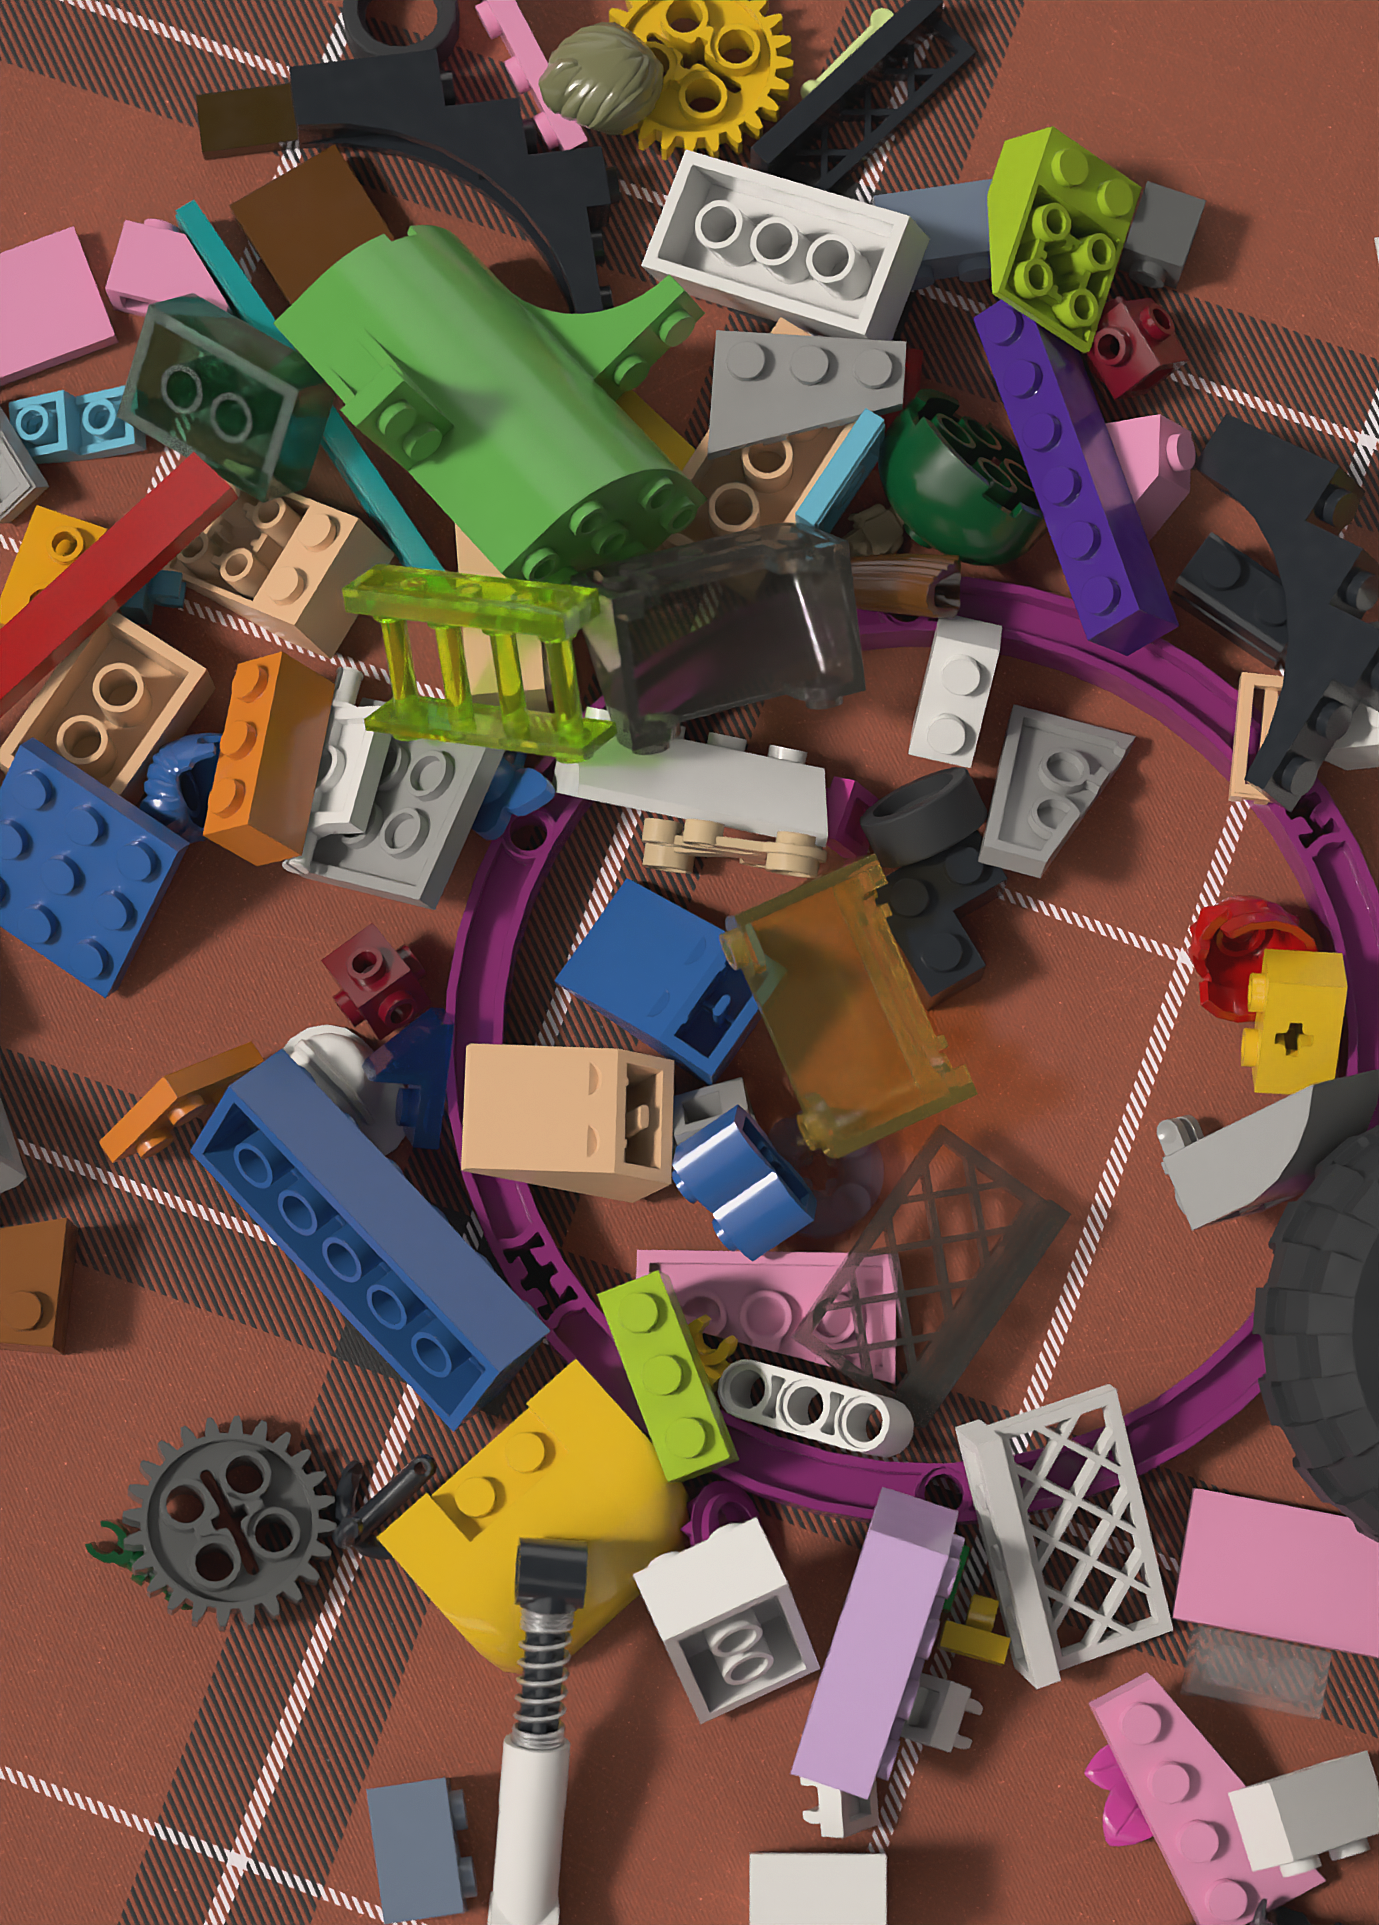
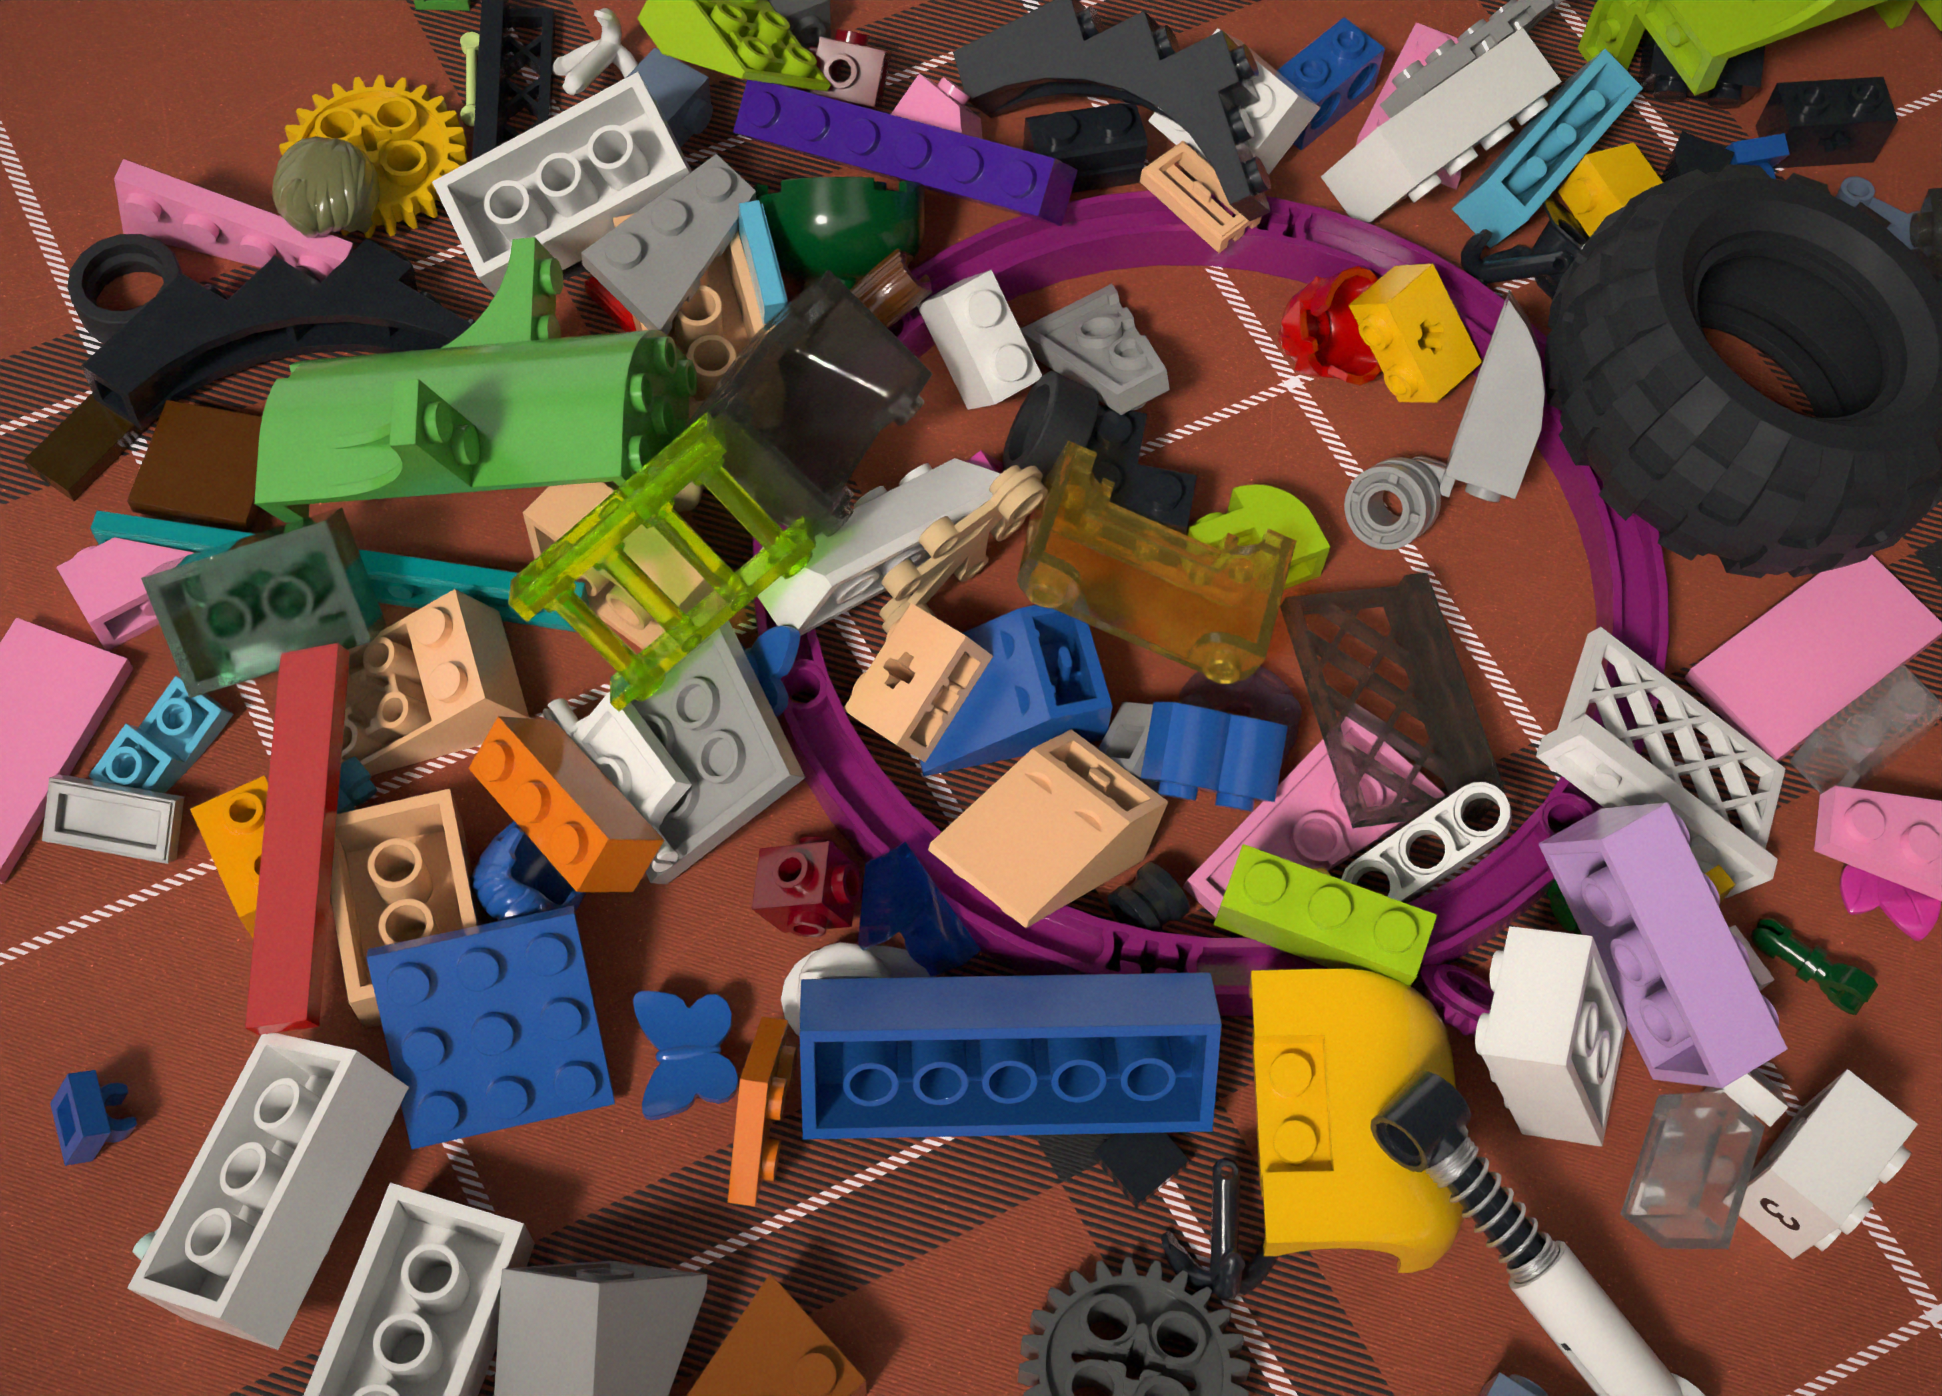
camera: 55 degrees left, 15 degrees down
(182, 1014) = (687, 1052): none -> blue animal
(391, 1402) = (1140, 1163): none -> black tile
(595, 1237) = (1149, 899): none -> black wheel
(607, 913) = (917, 682): none -> light nougat brick
(733, 1804) = (1693, 1171): none -> clear brick
(968, 132) = (590, 60): none -> white piece
(1009, 1053) = (1262, 507): none -> lime brick
(1011, 1806) = (1843, 984): none -> dark green piece
(1119, 1135) = (1370, 517): none -> light grey wheel

